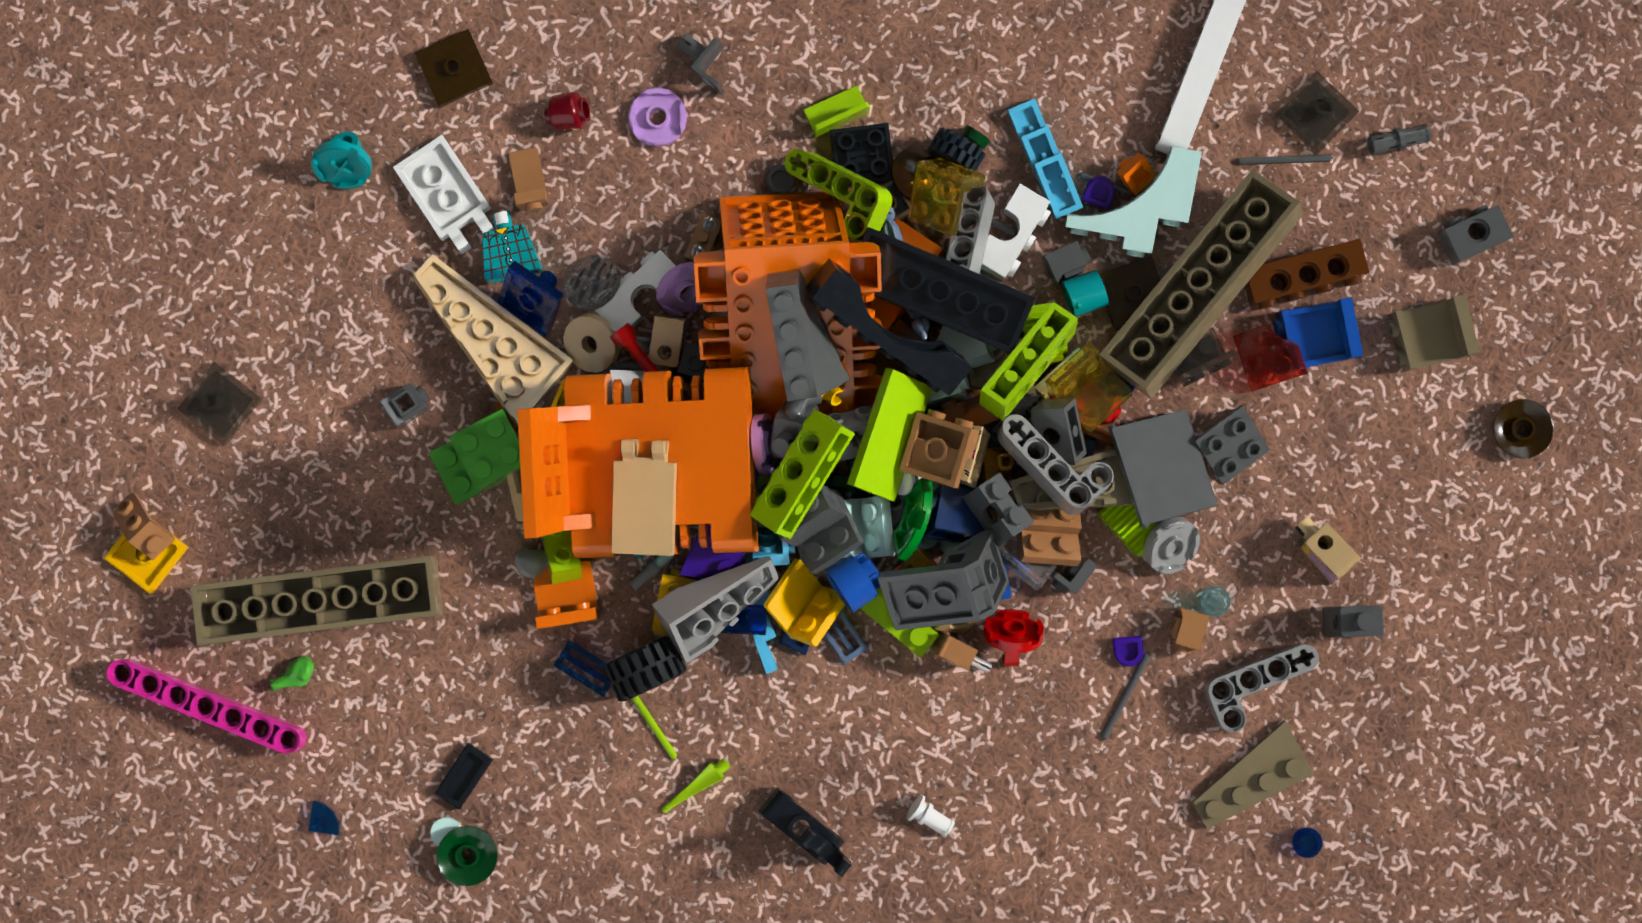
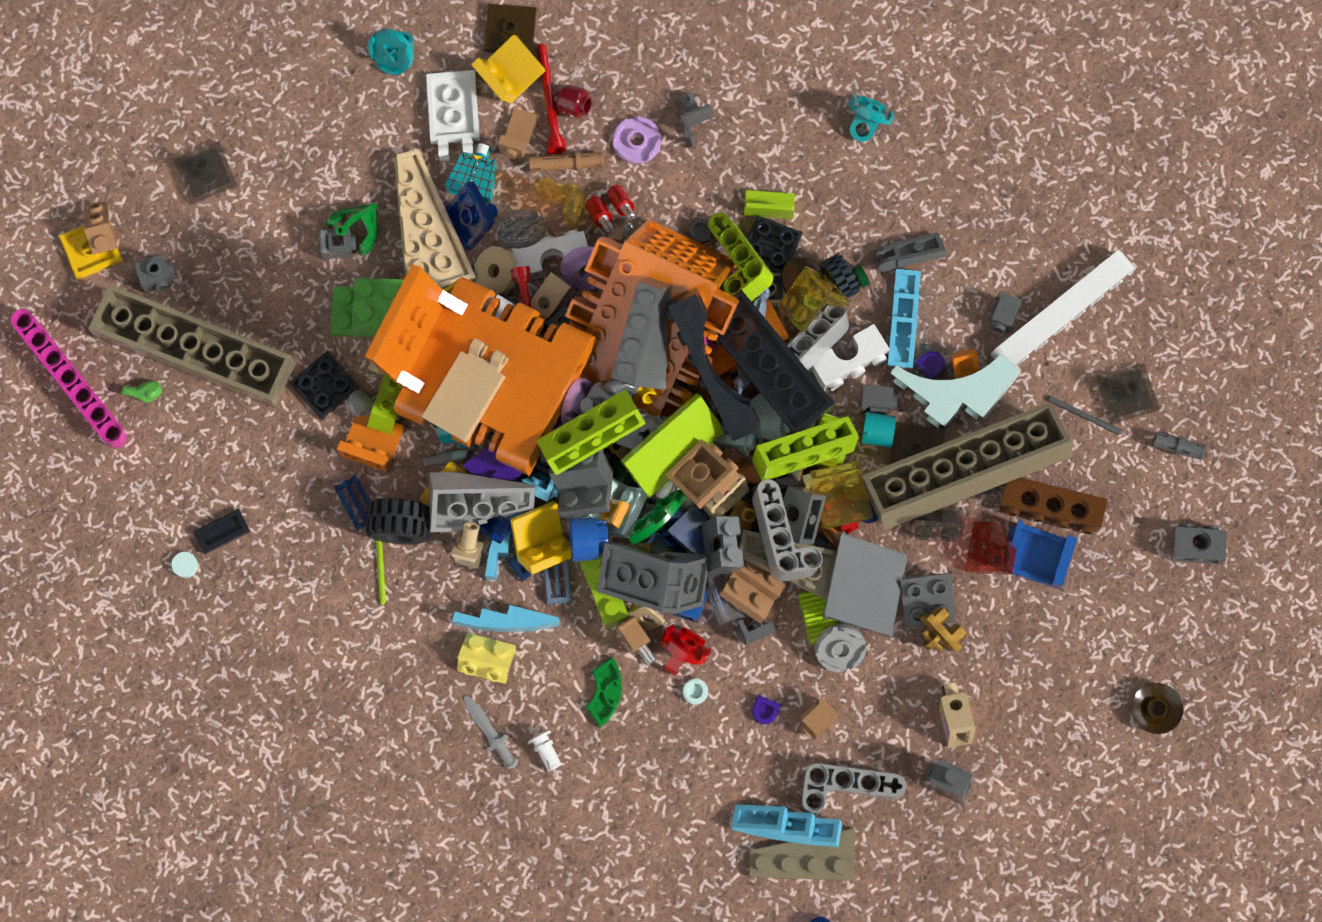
camera: 30 degrees right, 10 degrees down
(221, 545) = (155, 273): none -> dark grey brick
(323, 819) = (102, 506): clear blue tile -> none
(415, 356) = (368, 216): none -> green helmet
(467, 870) = (177, 584): dark green dish -> none
(480, 114) = (509, 69): none -> yellow bracket
(480, 562) = (324, 385): none -> black tile
(574, 167) = (555, 142): none -> red piece
(601, 179) = (563, 162): none -> medium nougat pin
(625, 218) = (567, 194): none -> clear yellow bracket
(679, 195) = (620, 201): none -> red piece
(710, 775) = (400, 629): lime piece -> none
(732, 654) = (467, 548): none -> tan bracket
(814, 755) = (485, 658): none -> light yellow bracket
(816, 840) = (448, 712): black piece -> none
(823, 700) = (515, 620): none -> medium azure slope
(870, 534) = (616, 513): none -> light orange tile
(872, 834) = (495, 740): none -> light grey sword
(957, 721) = (607, 692): none -> green tile
(1012, 83) = (909, 252): none -> dark grey hinge
(1046, 670) = (695, 691): none -> light aqua tile
(1125, 696) = (743, 744): dark grey axle -> none
(1145, 95) = (1004, 312): none -> dark grey window
(1216, 757) = (786, 826): none -> medium azure slope
(1219, 601) = (851, 704): clear light blue wheel -> none
(1253, 464) = (934, 622): none -> pearl gold hips
(1433, 333) = (1125, 602): dark tan panel -> none

